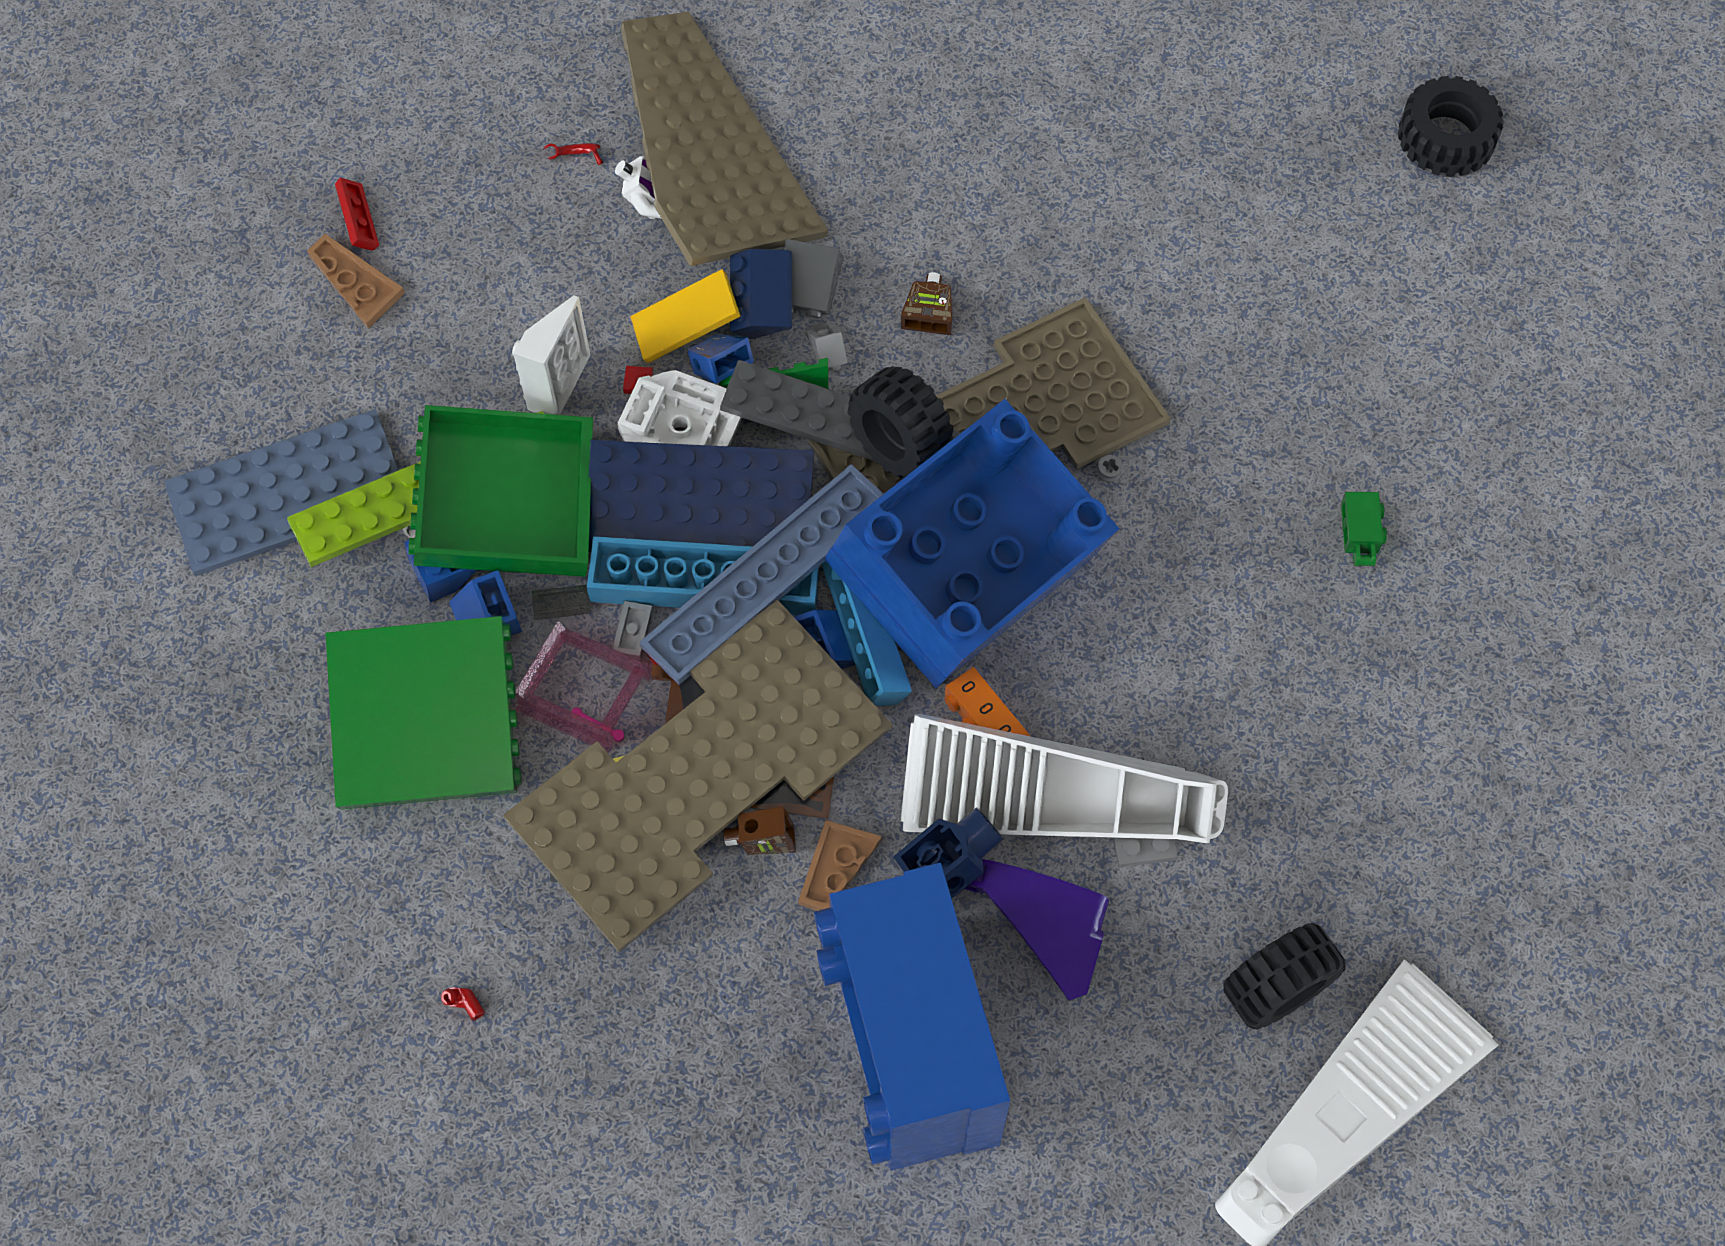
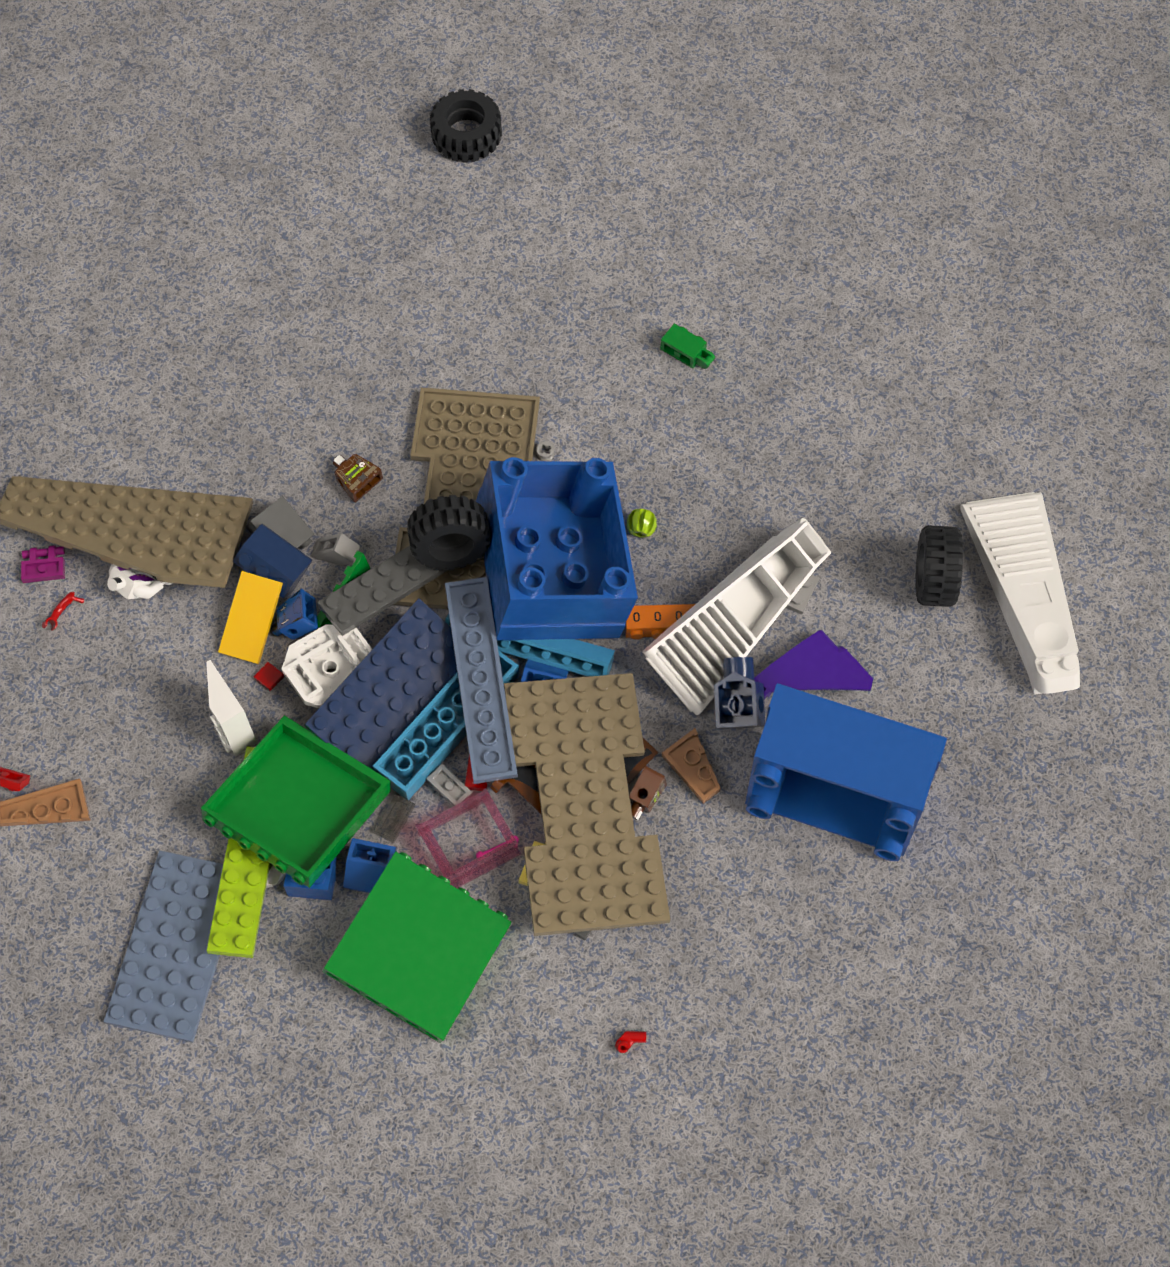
camera: 55 degrees left, 0 degrees up
(606, 105) = (43, 569): none -> magenta plate
(1095, 620) = (641, 523): none -> lime piece

